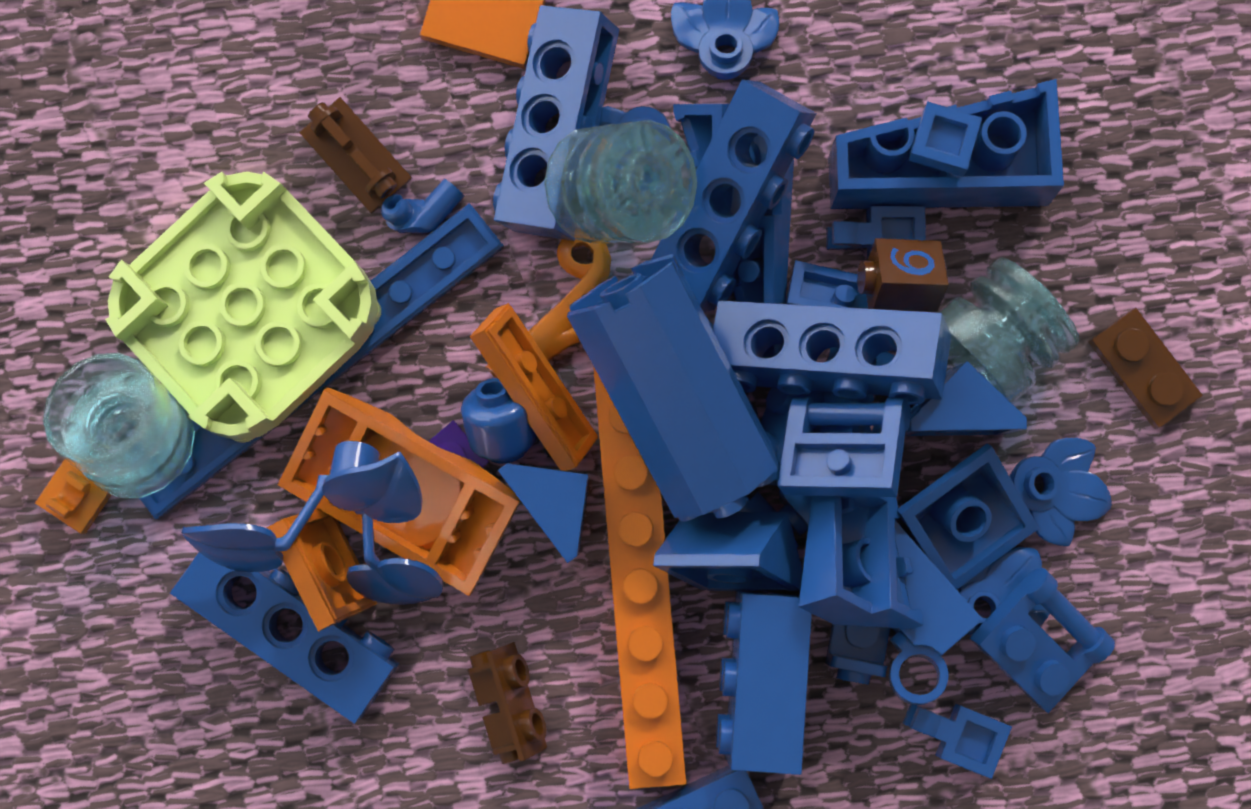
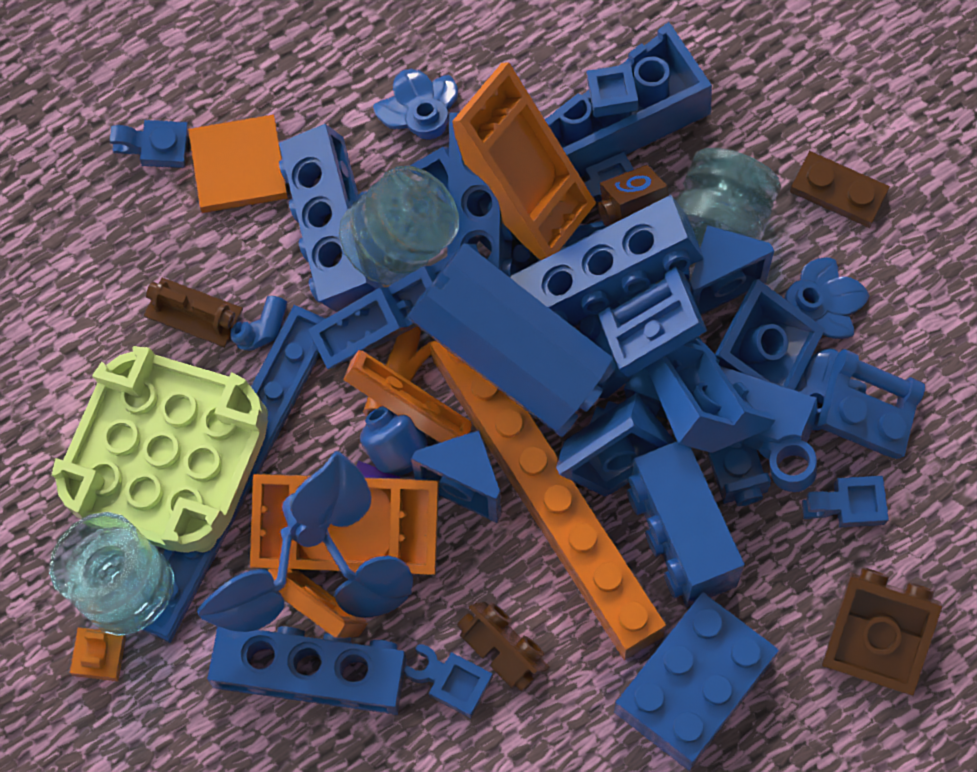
camera: 20 degrees left, 15 degrees down
(438, 720) = (455, 683): none -> blue plate
(561, 269) = (373, 317): none -> blue slope
(792, 184) = (522, 163): none -> orange slope

